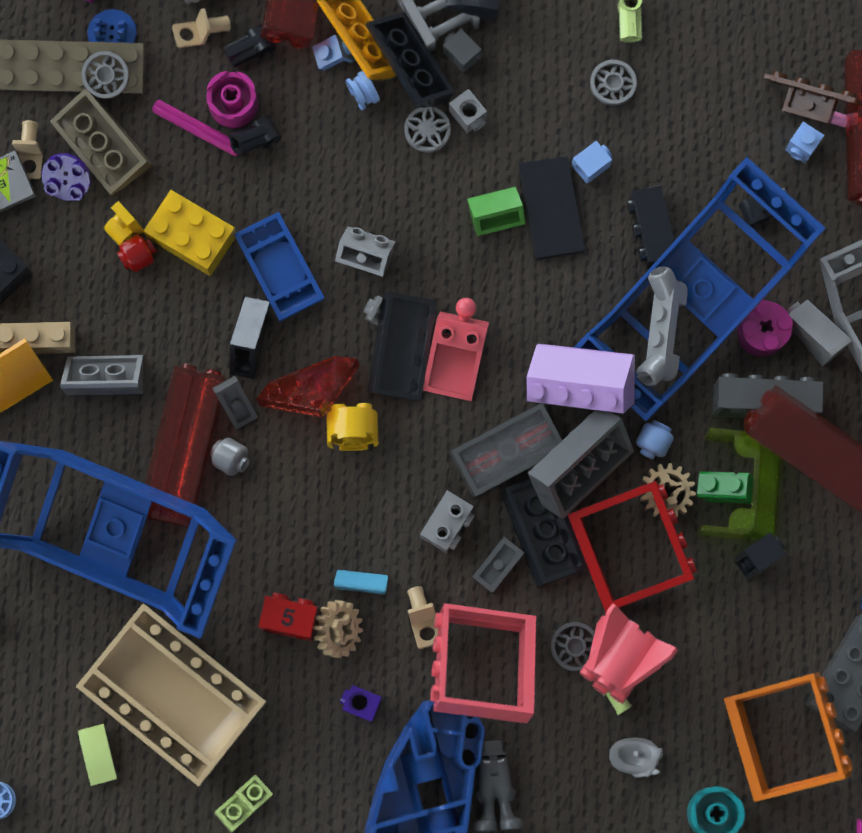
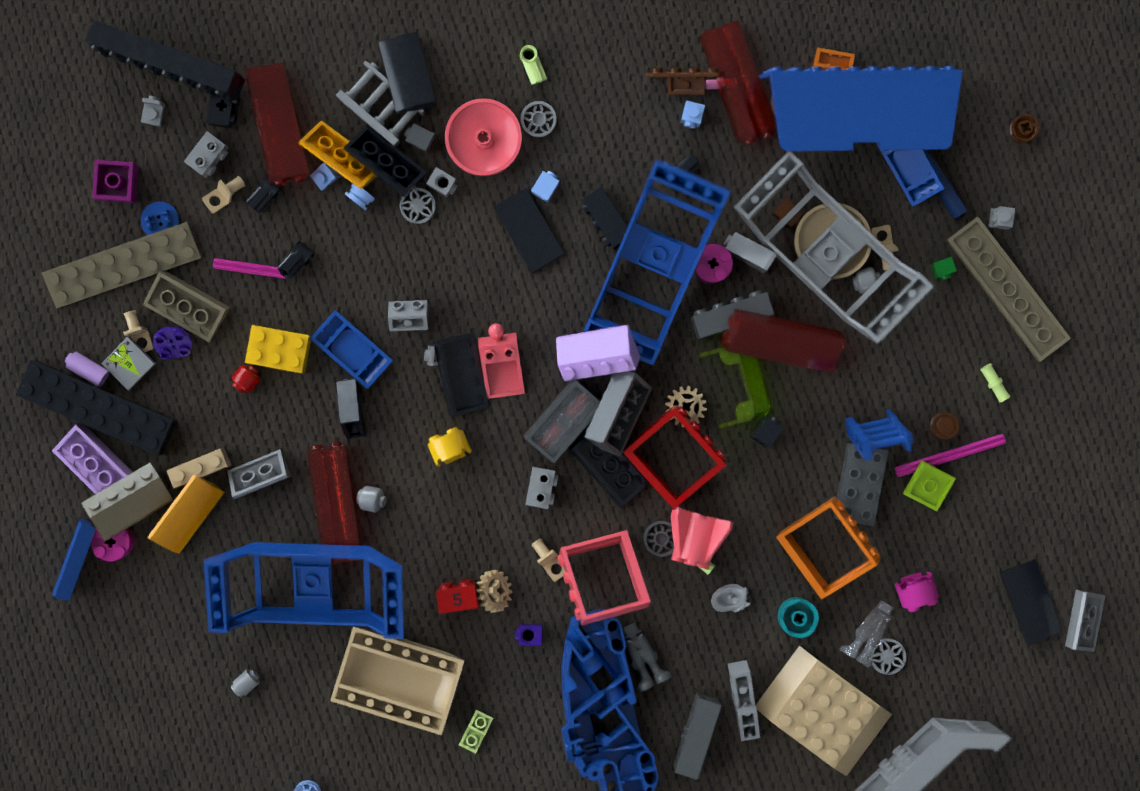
camera: 25 degrees left, 10 degrees up
(97, 754) = (363, 738): yellowish green slope -> none
(105, 74) = (169, 256): light grey wheel -> none
(122, 225) = (228, 362): yellow plate -> none
(235, 402) = (359, 460): dark grey plate -> none
(241, 90) = (272, 229): dark pink brick -> none
(311, 388) = (409, 429): clear red plate -> none
(361, 582) = (496, 550): medium azure slope -> none
(496, 211) = (490, 248): bright green brick -> none
(498, 565) = (587, 503): dark grey plate -> none
(539, 76) = (483, 137): none -> coral dish
(654, 440) = (663, 373): light blue head -> none
(668, 296) = (636, 270): light grey plate -> none
(725, 487) = (724, 390): green brick -> none

